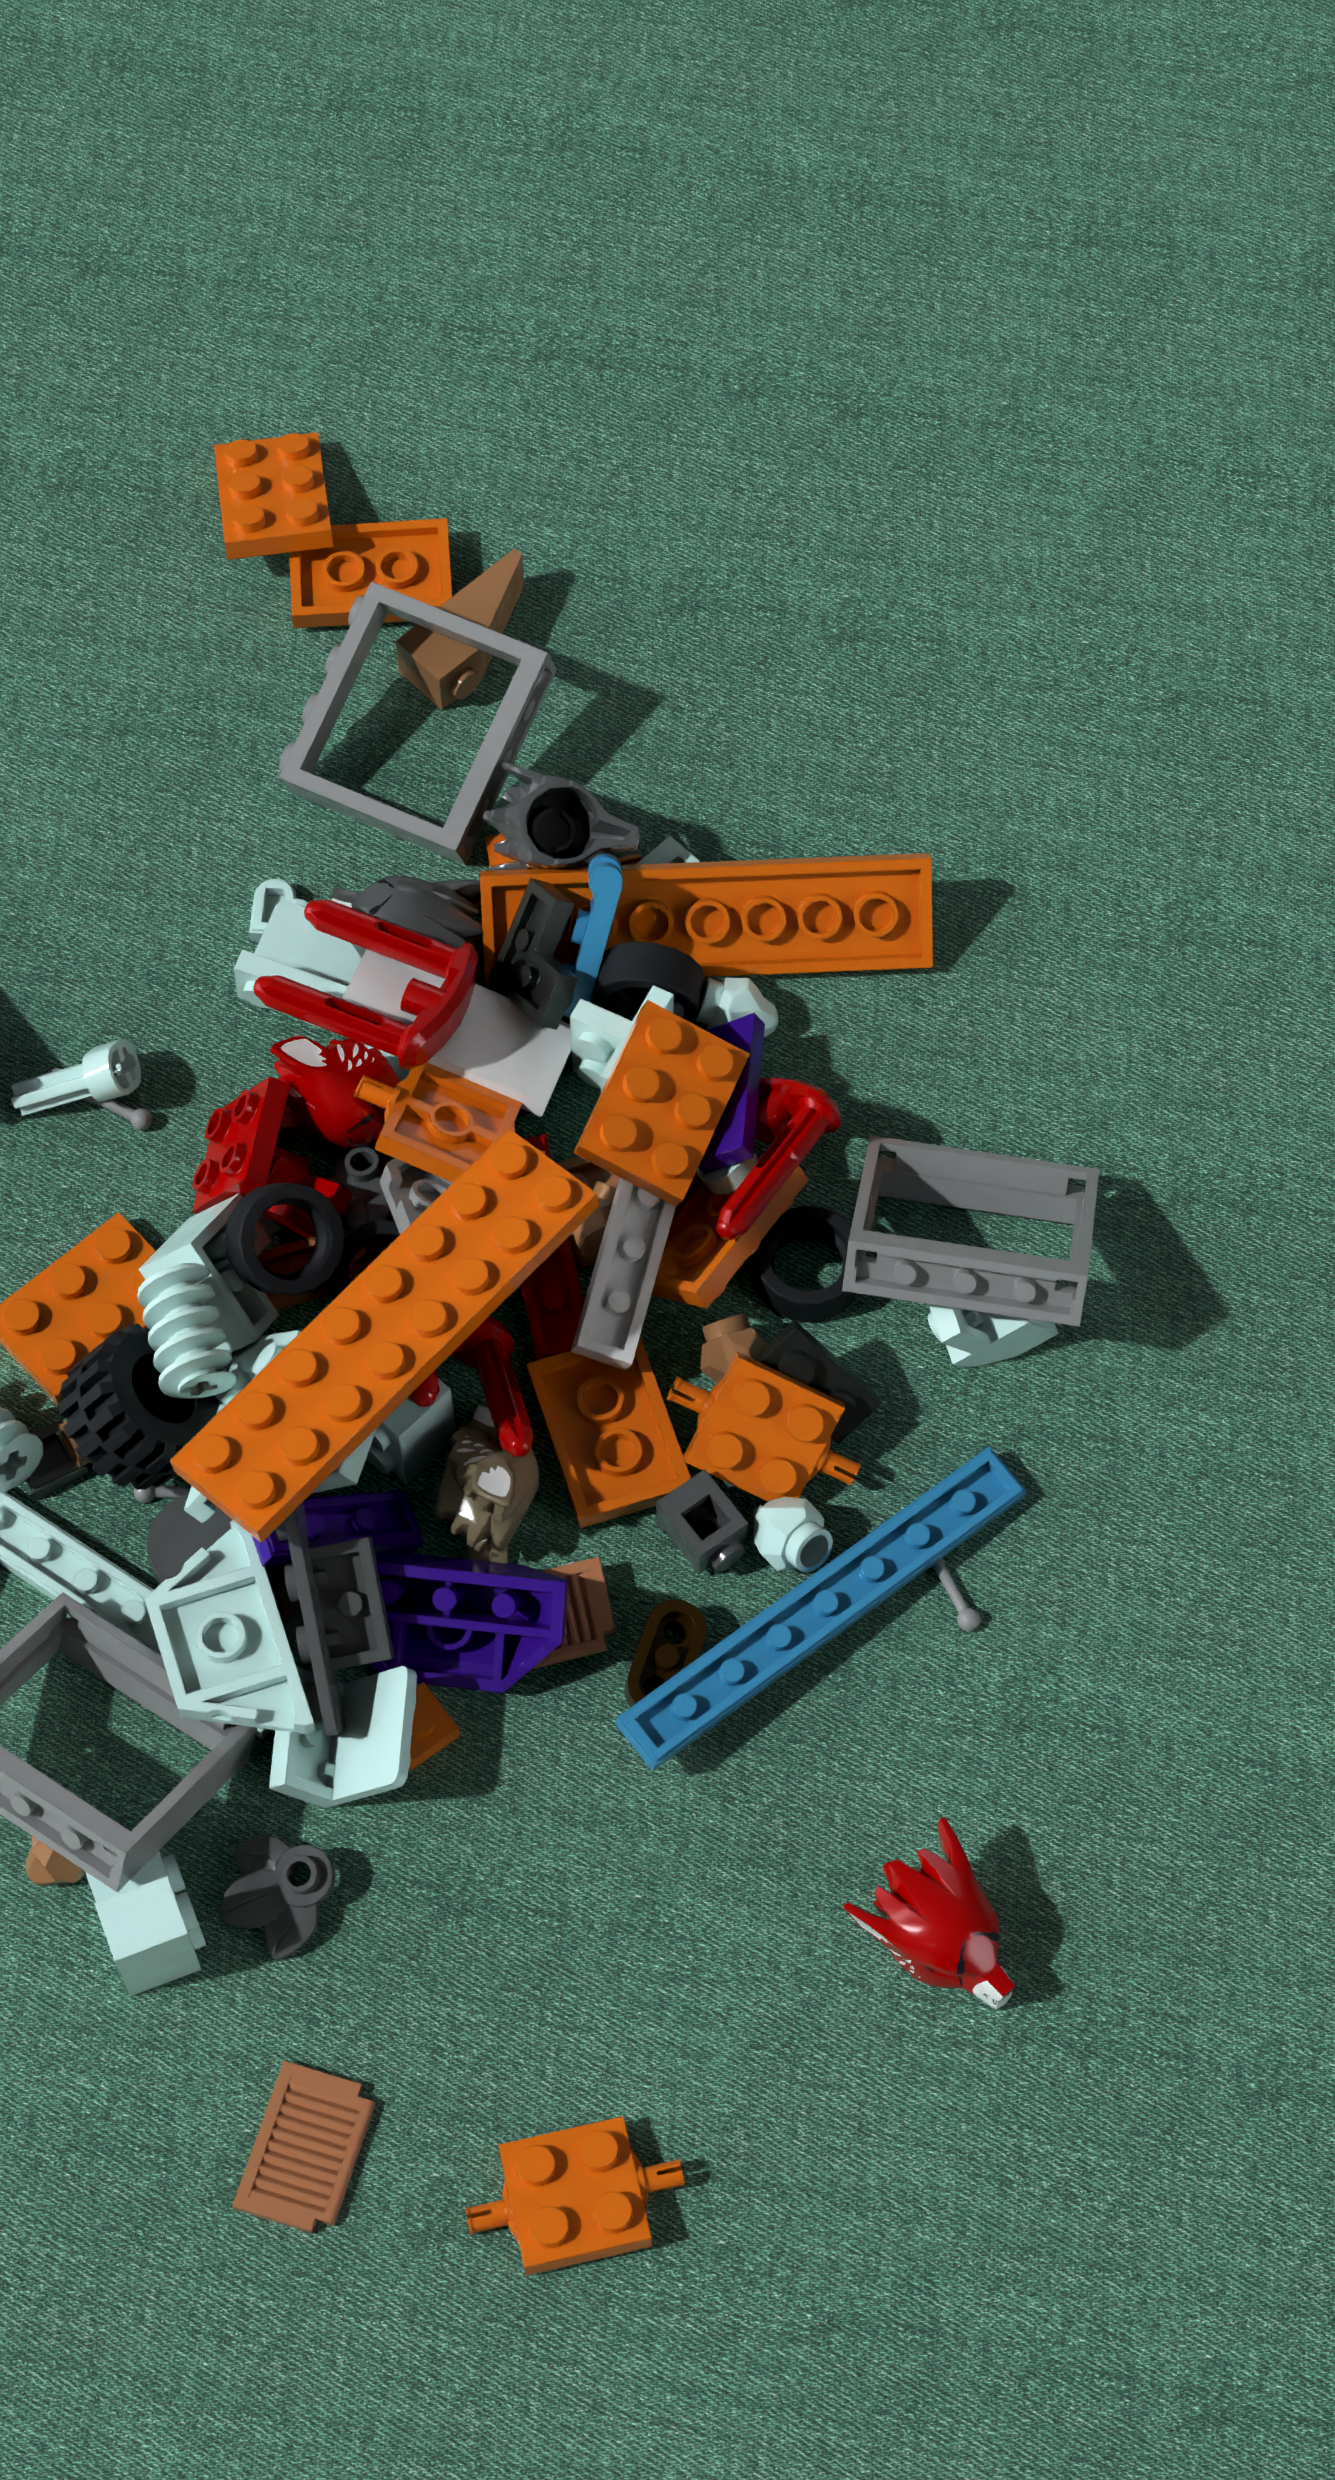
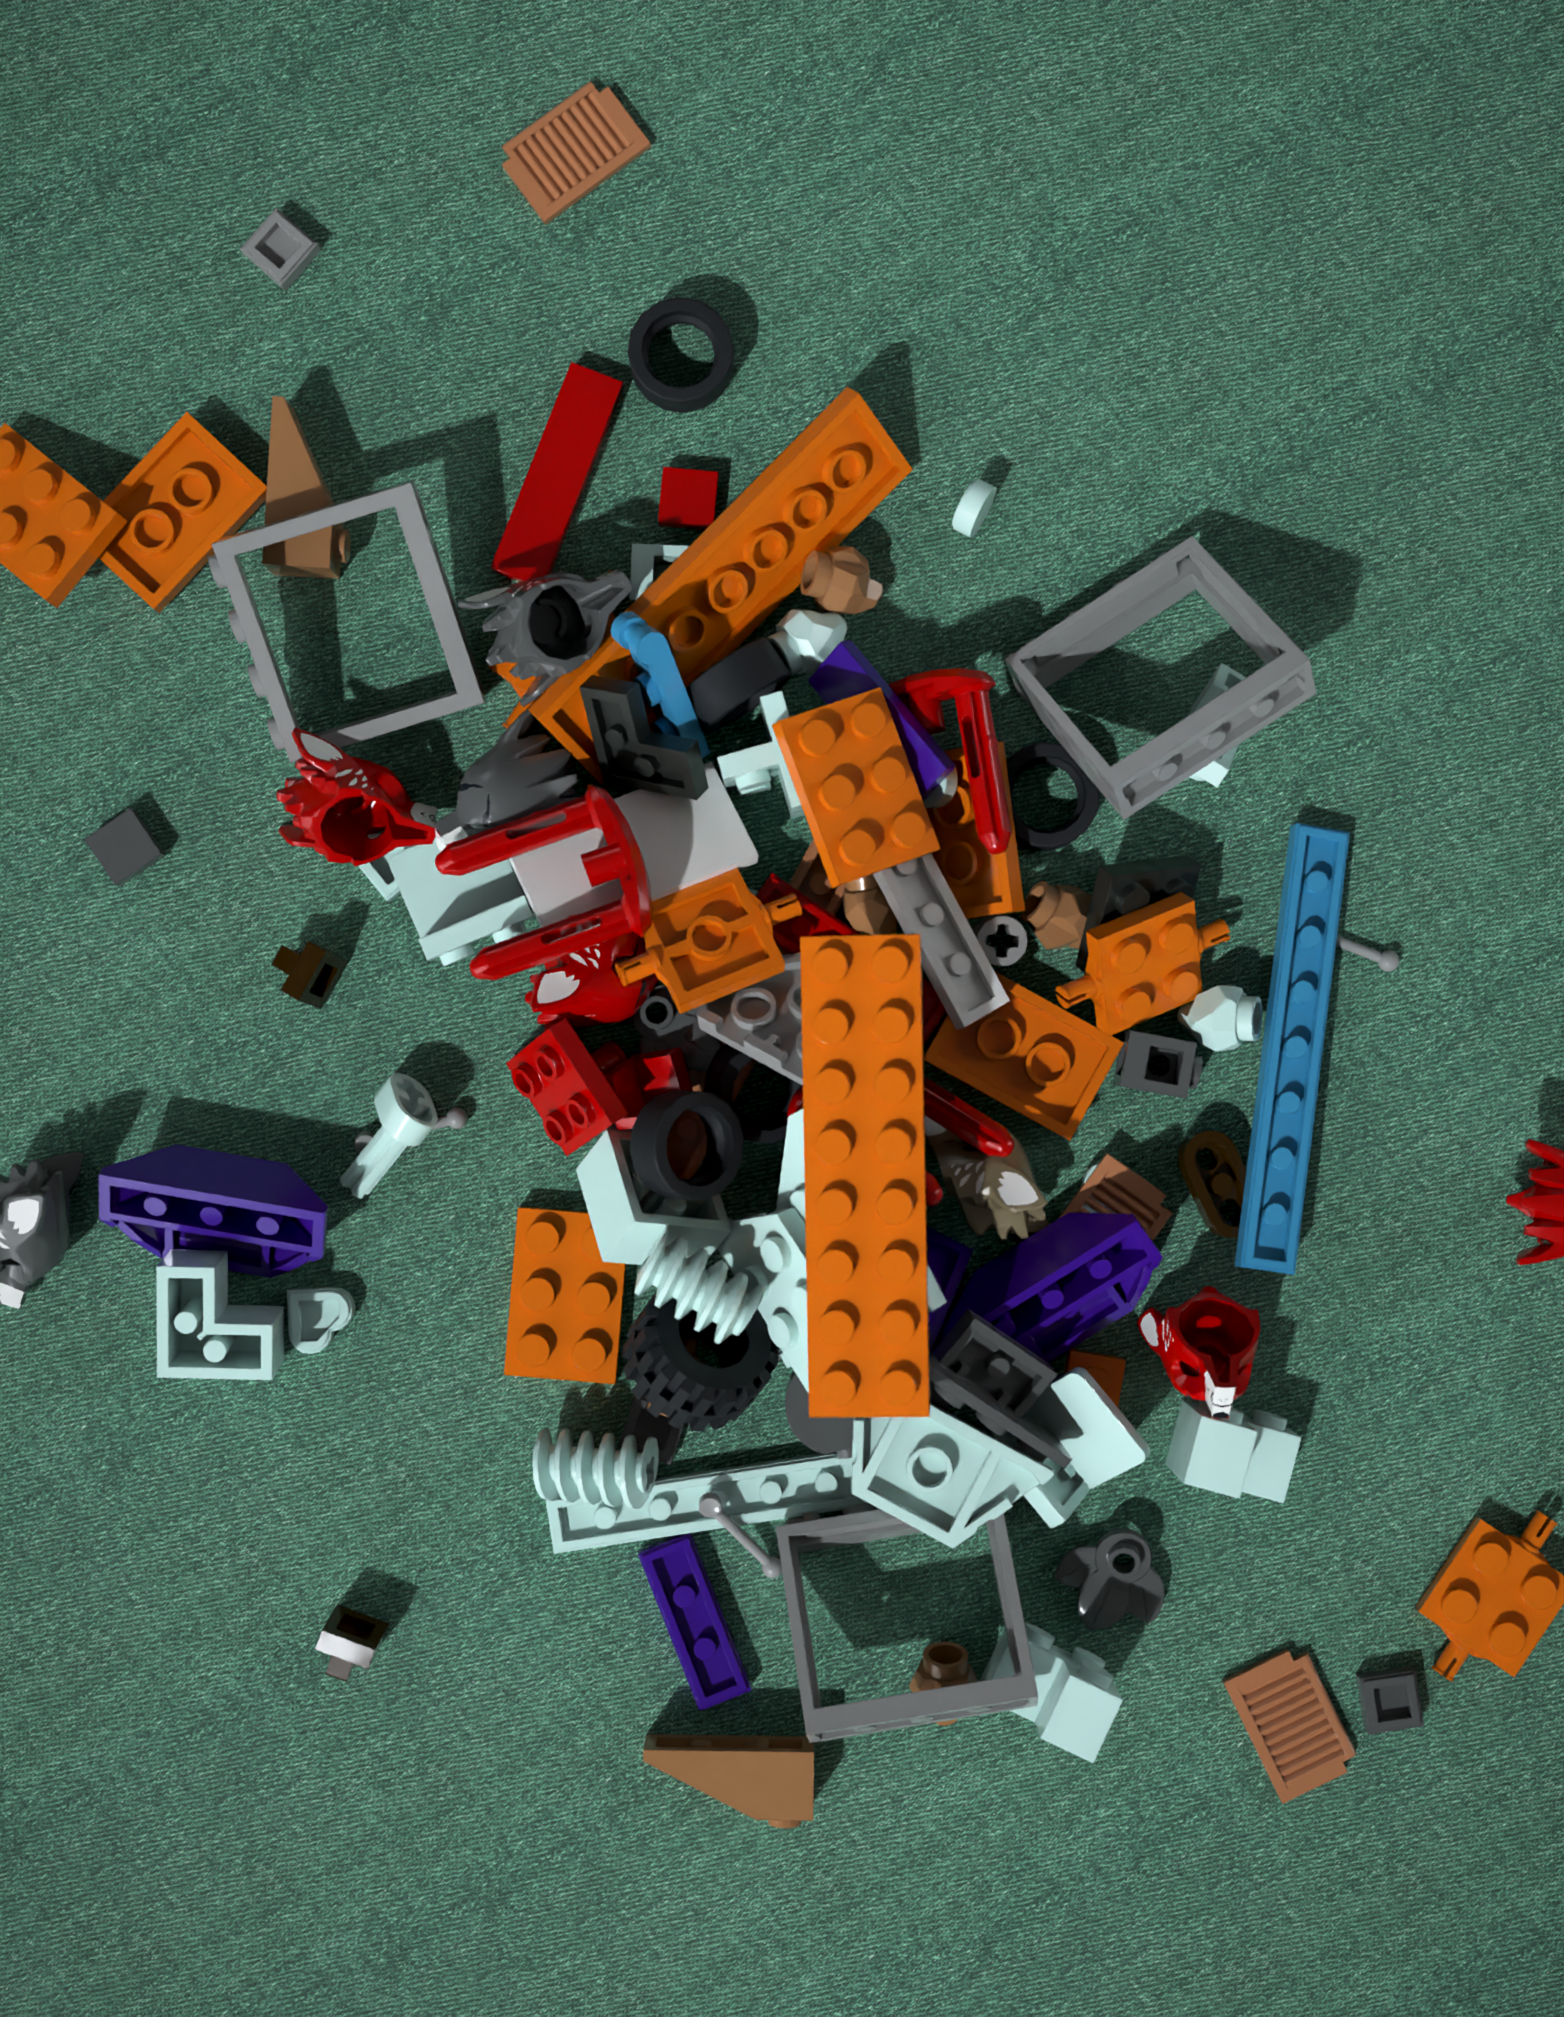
camera: 45 degrees left, 25 degrees up
(30, 1540) = (711, 1507): none -> light grey hinge
(107, 750) = (125, 847): none -> dark grey tile
(144, 929) = (310, 972): none -> dark brown tile
(289, 836) = (346, 800): none -> red piece
(404, 2203) = (1389, 1699): none -> dark grey tile
(463, 1851) = (1233, 1452): none -> light aqua brick
(538, 1752) = (1205, 1347): none -> red piece
(620, 481) = (280, 249): none -> light grey tile
(672, 1312) = (1009, 952): none -> light grey bush
(678, 760) = (557, 474): none -> red tile
(744, 843) = (688, 498): none -> red tile
(801, 991) = (840, 581): none -> medium nougat rock
(838, 723) = (671, 313): none -> black tyre
(891, 581) = (572, 150): none -> nougat window
(952, 1025) = (973, 507): none -> light aqua tile

